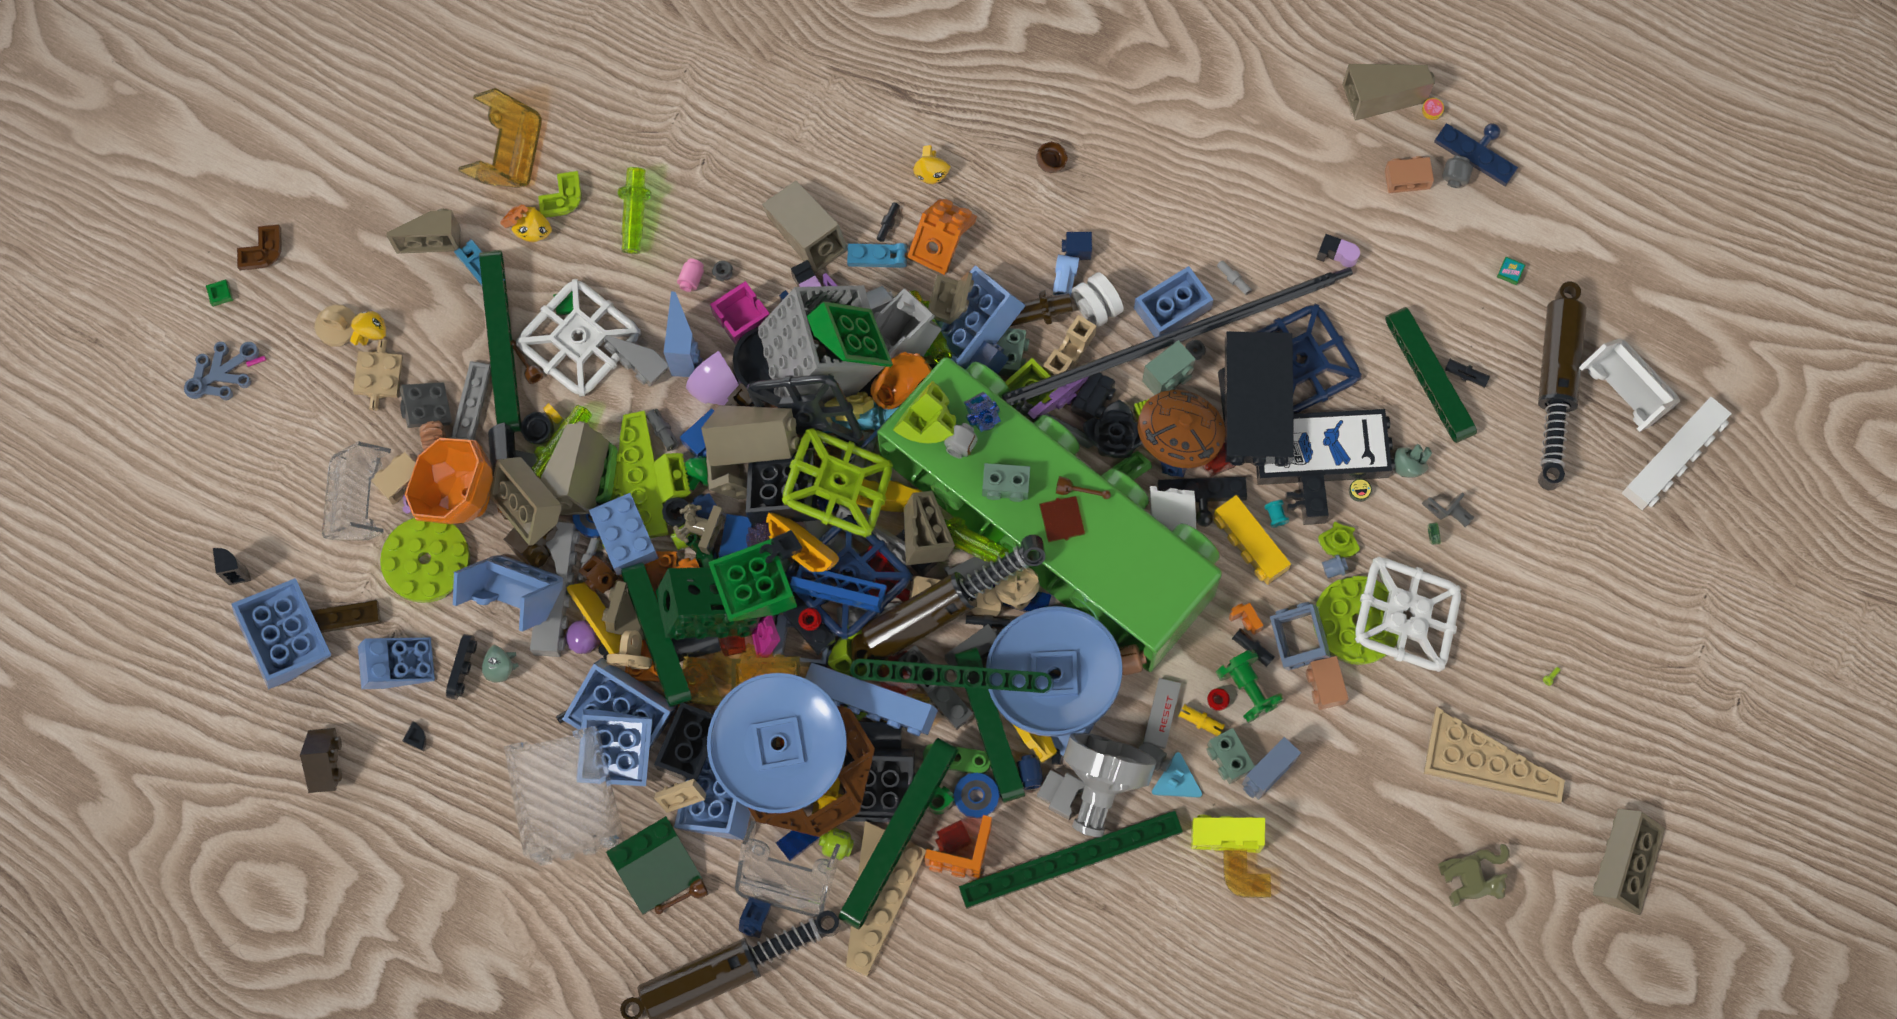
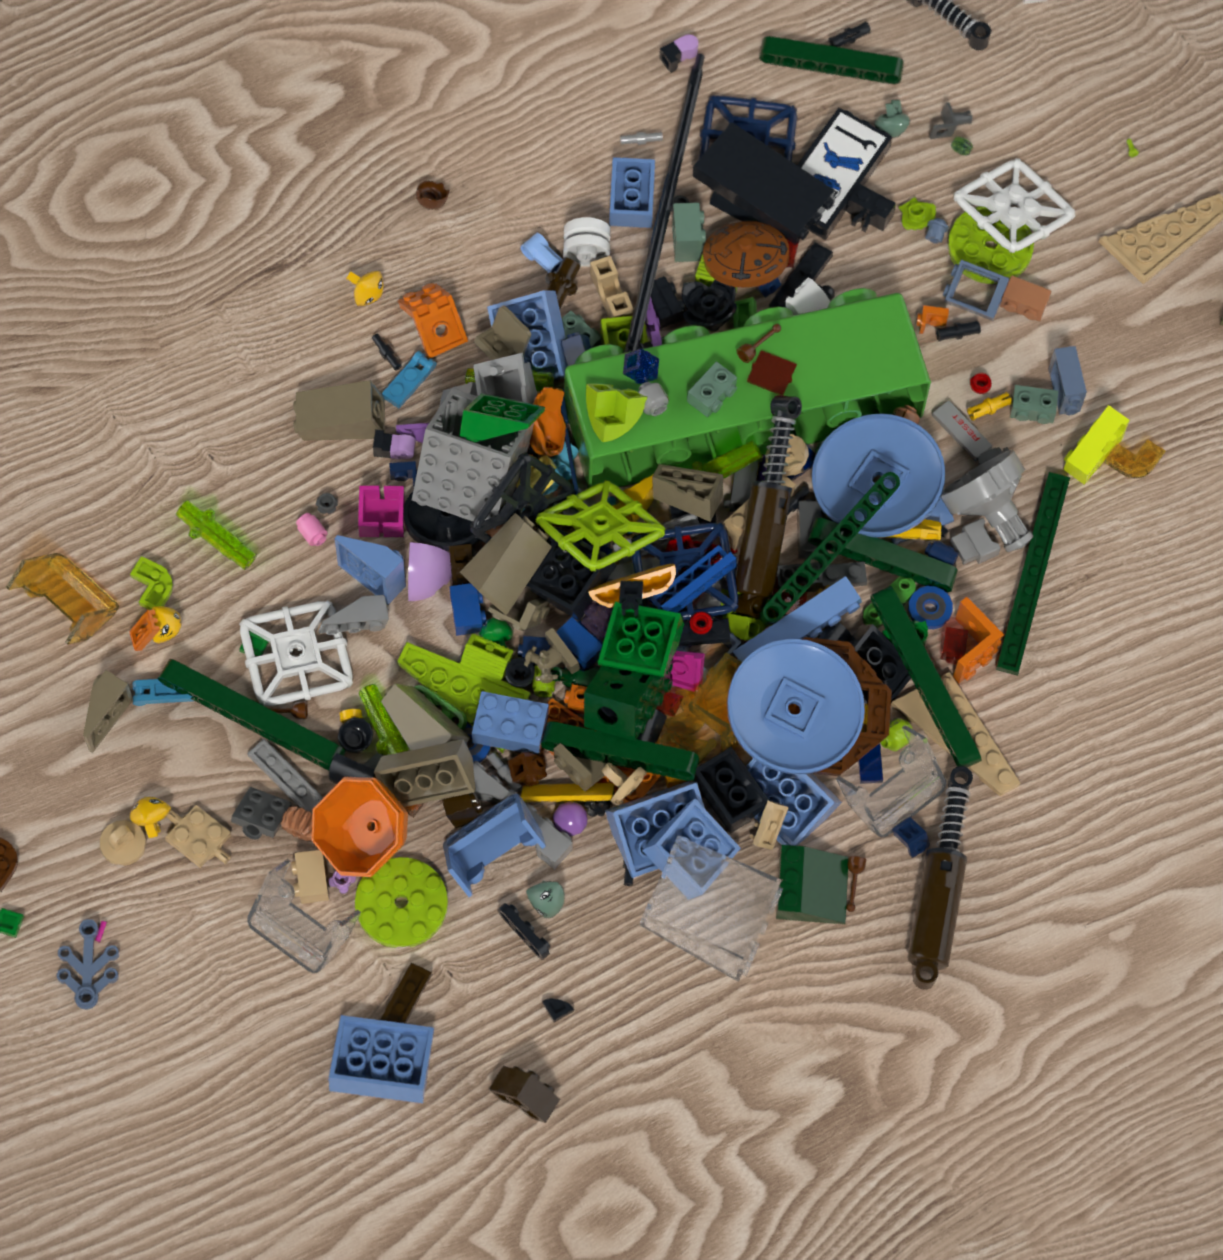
camera: 60 degrees left, 5 degrees down
(229, 567) = (288, 1061): black brick -> none
(395, 662) = (478, 983): medium blue slope -> none
(662, 429) = (434, 640): dark grey pin -> none
(1078, 245) = (524, 226): dark blue brick -> none
(1177, 780) = (1027, 453): medium azure piece -> none
(1245, 678) = (981, 349): green piece -> none
(1251, 540) = (871, 271): yellow brick -> none
(1276, 513) = (862, 241): teal bush -> none
(1360, 490) = (886, 172): tile -> none

